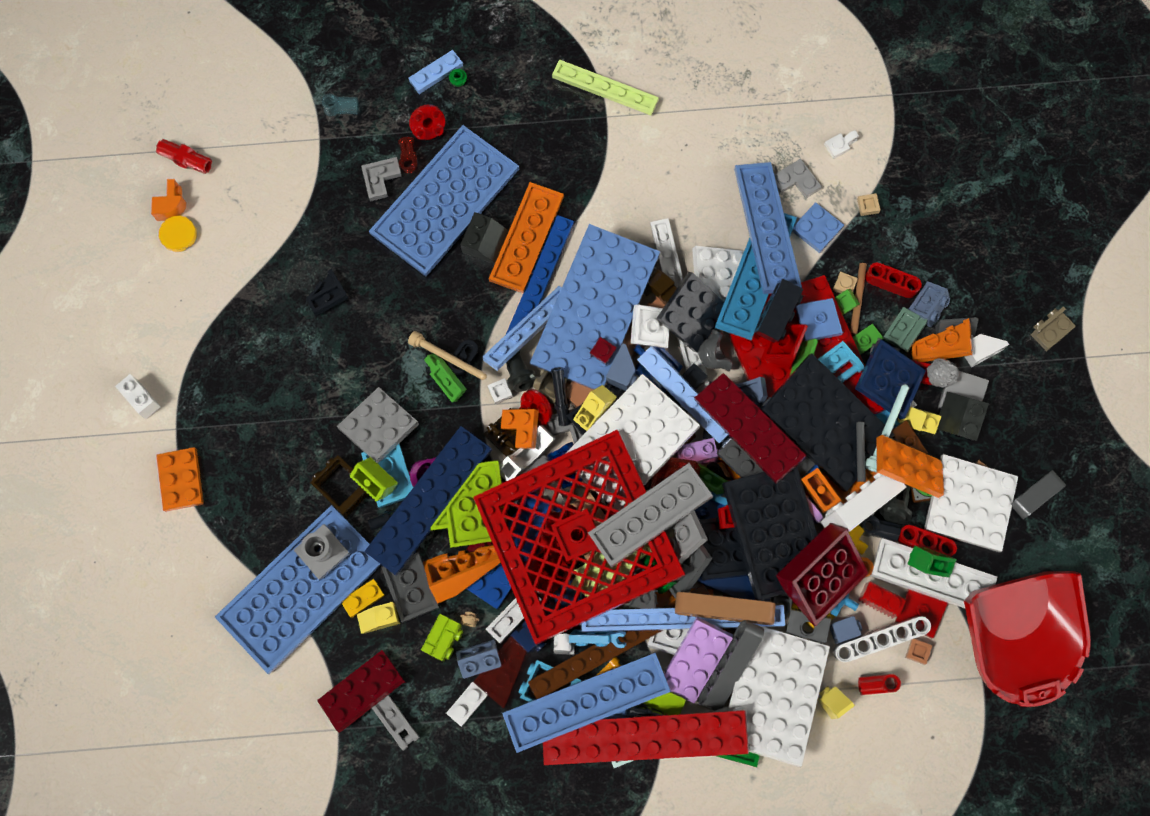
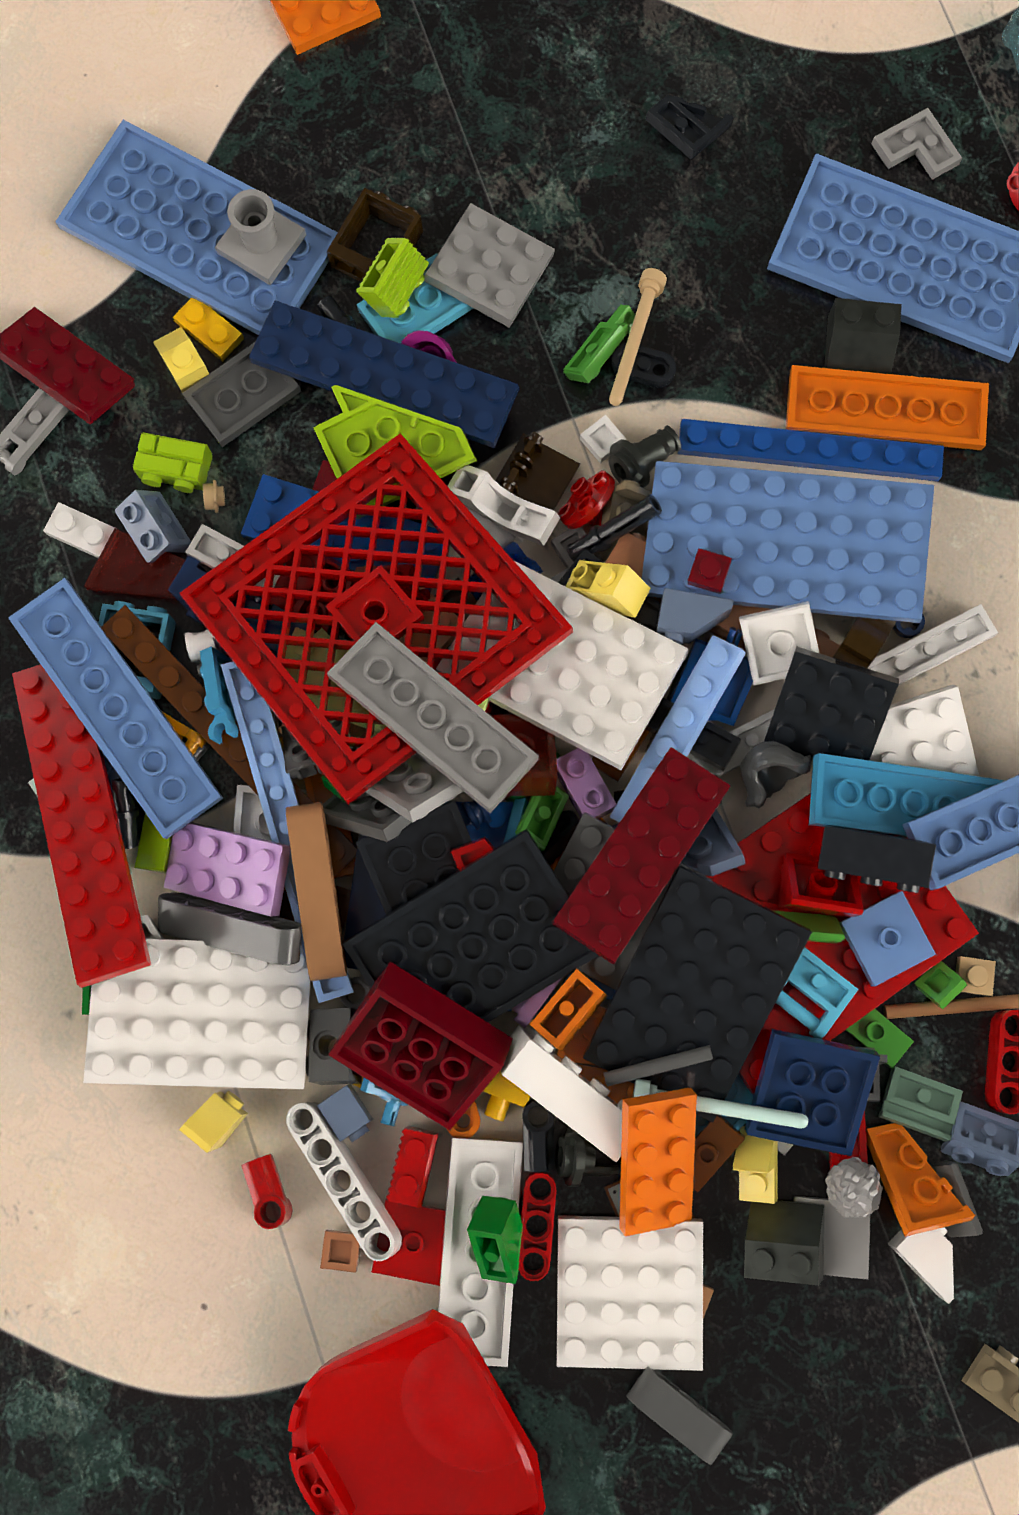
camera: 75 degrees right, 5 degrees up
(407, 154) = (973, 174): clear red connector -> none
(453, 574) = (278, 448): orange wedge -> none
(521, 333) = (699, 433): light blue plate -> none
(525, 423) = (552, 490): orange plate -> none

